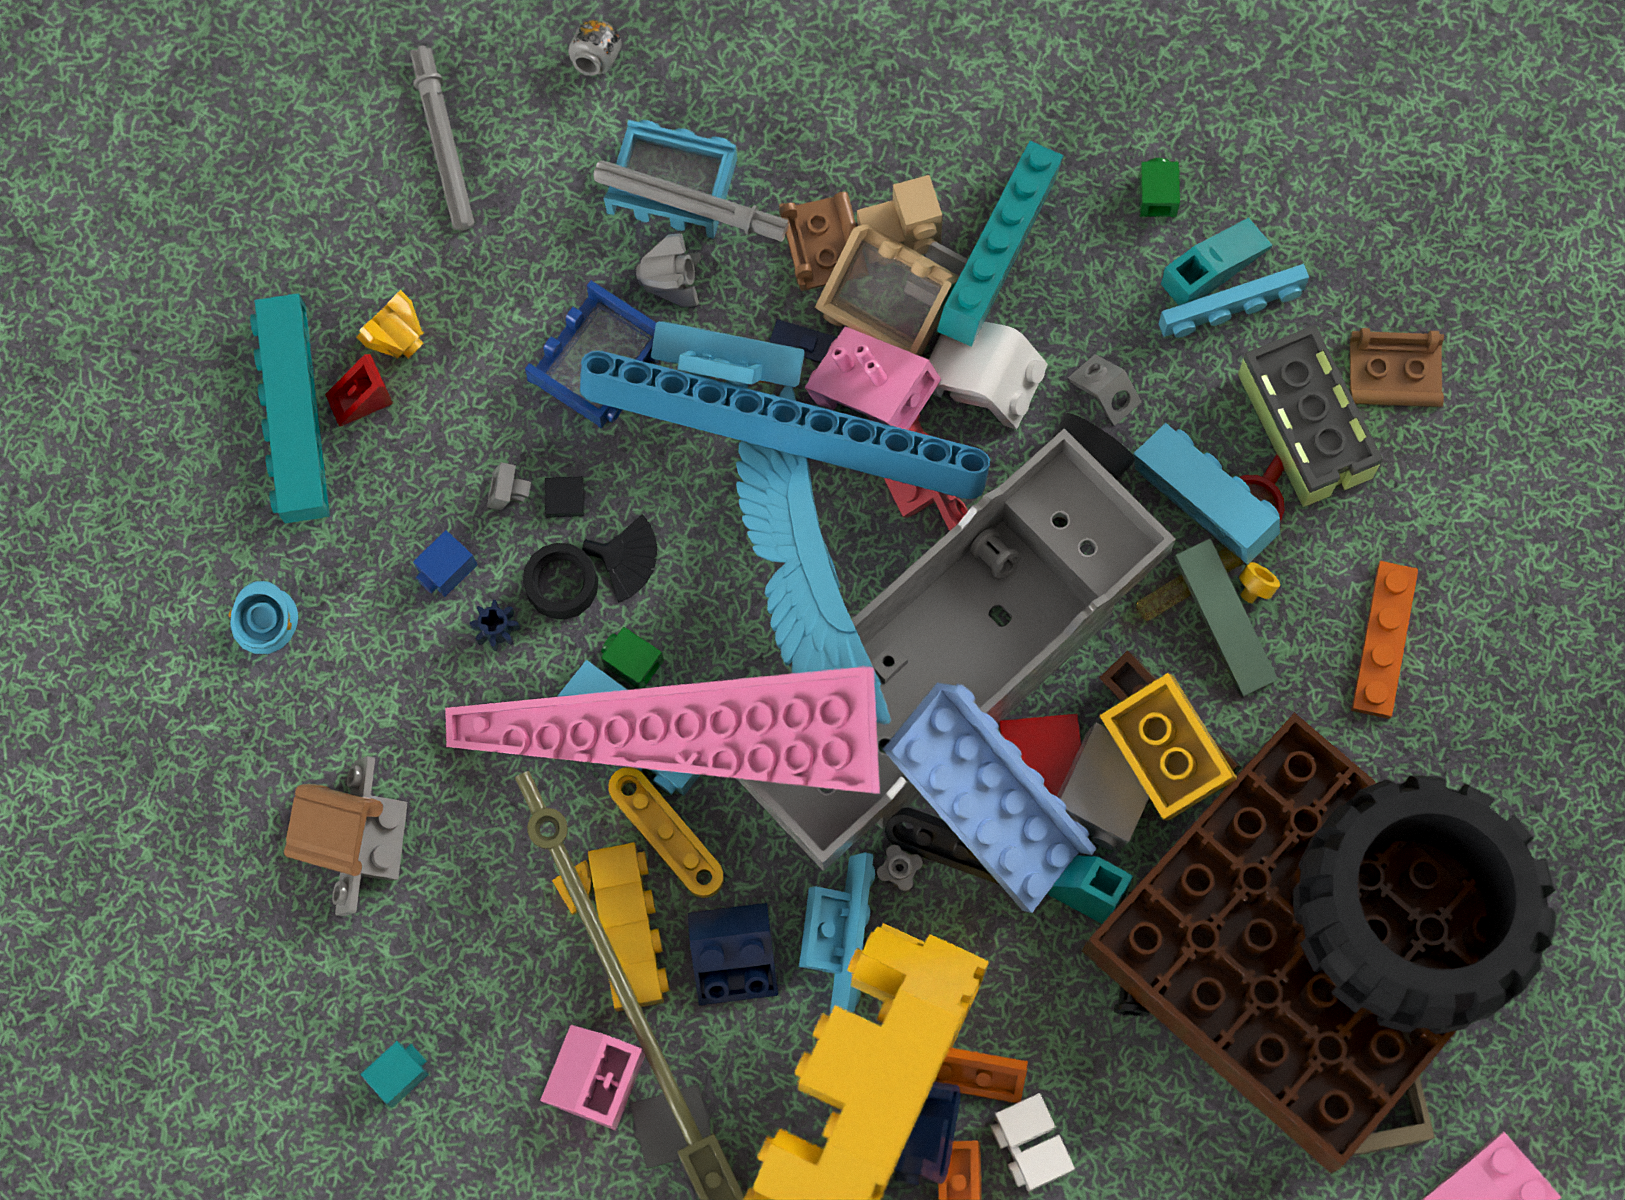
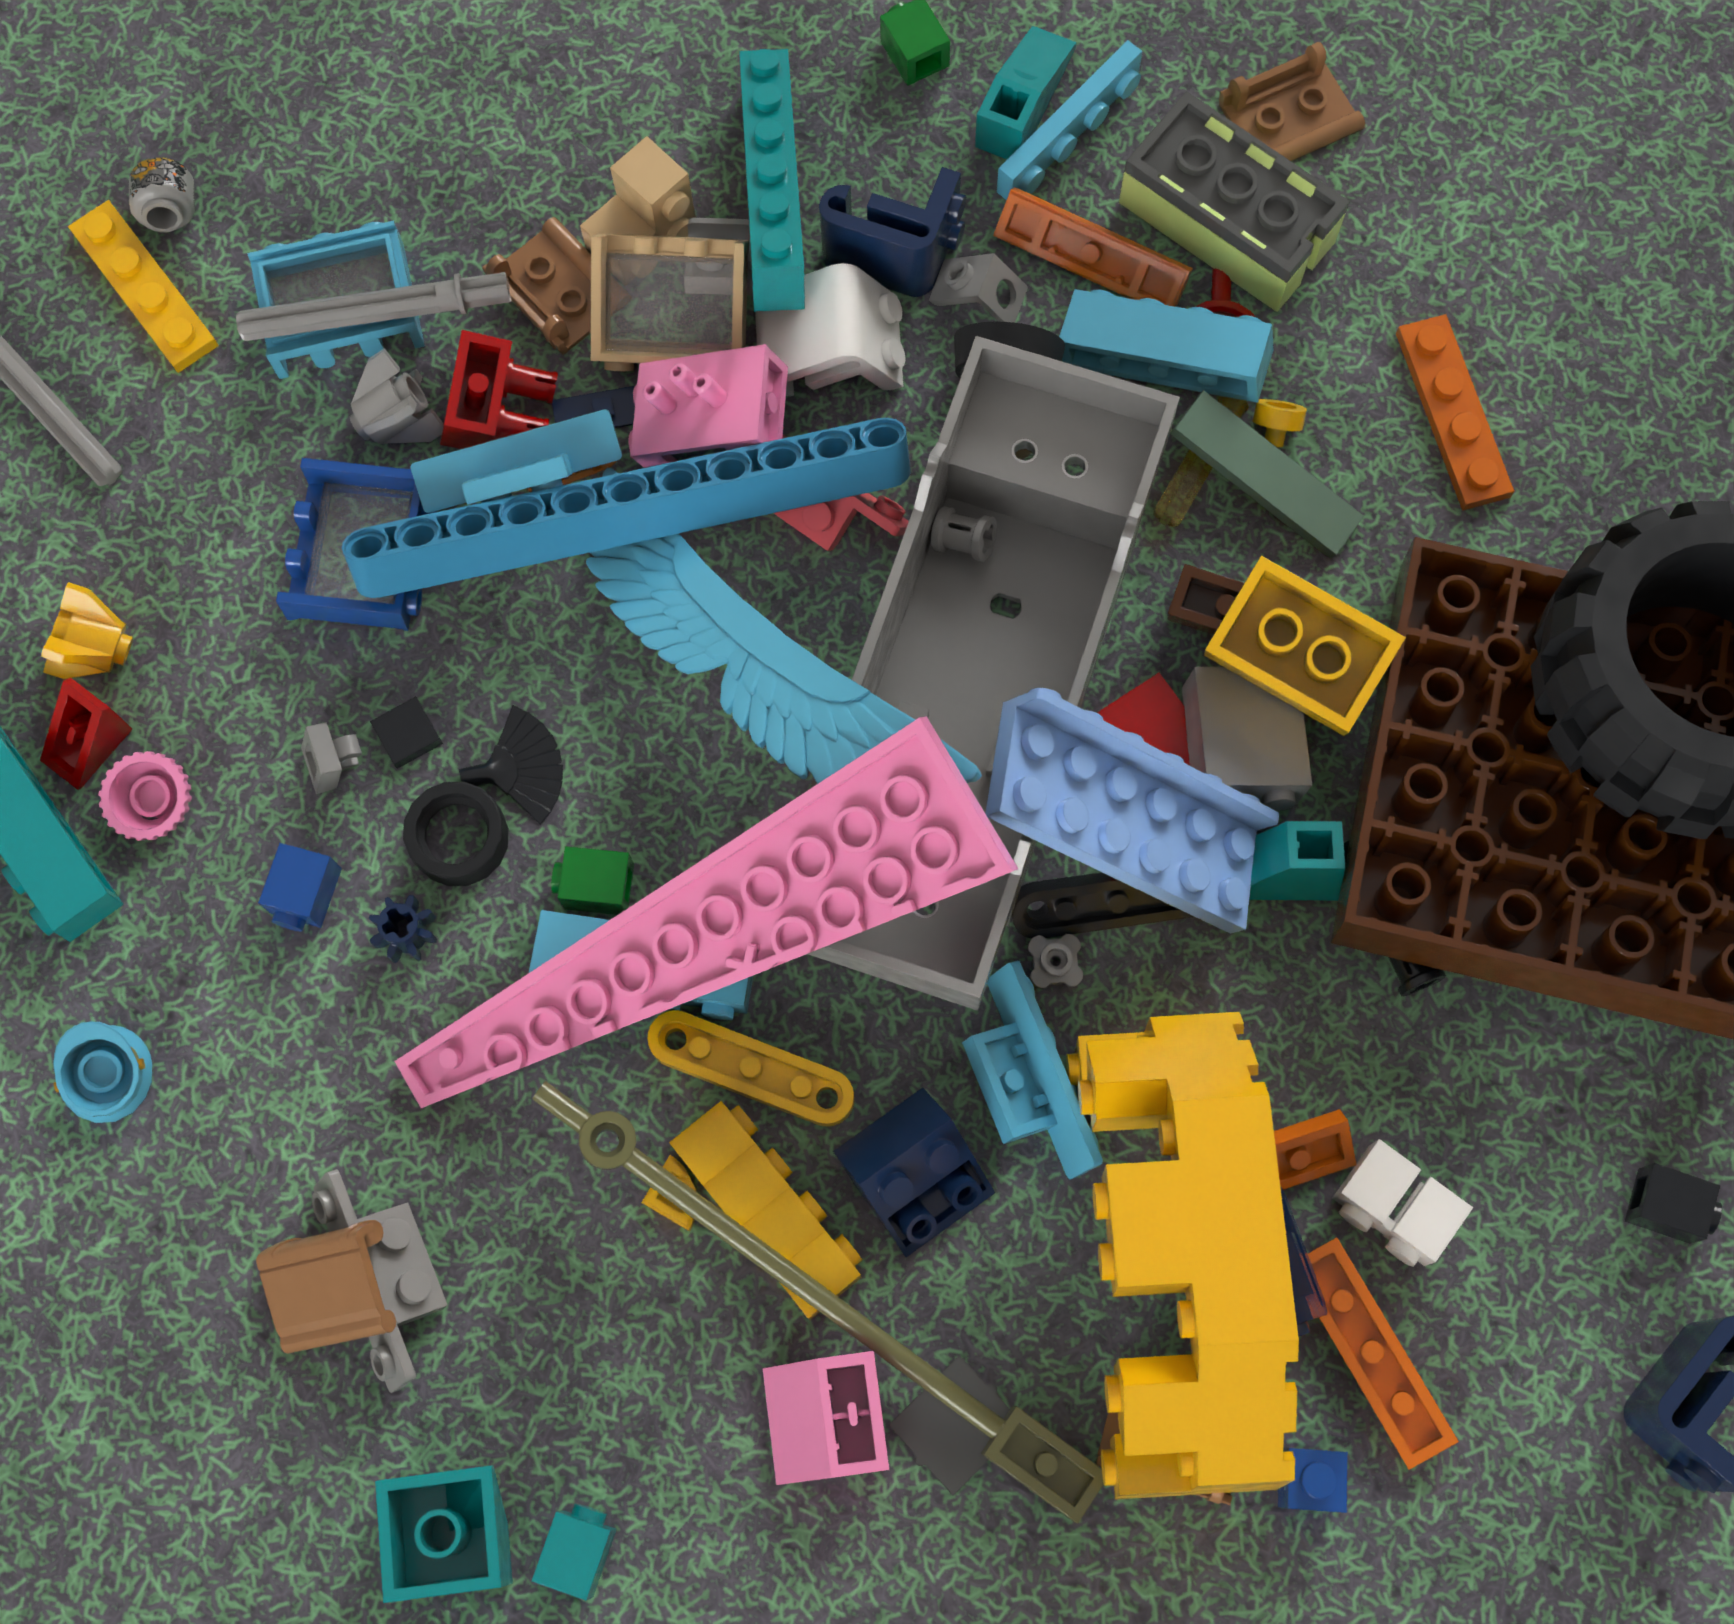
camera: 30 degrees left, 0 degrees up
(322, 1016) = (442, 1534): none -> teal slope
(383, 449) = (145, 787): none -> bright pink hat
(551, 104) = (143, 286): none -> yellow plate
(737, 282) = (479, 382): none -> red brick
(1062, 330) = (898, 241): none -> dark blue piece
(1197, 401) = (1090, 250): none -> orange plate

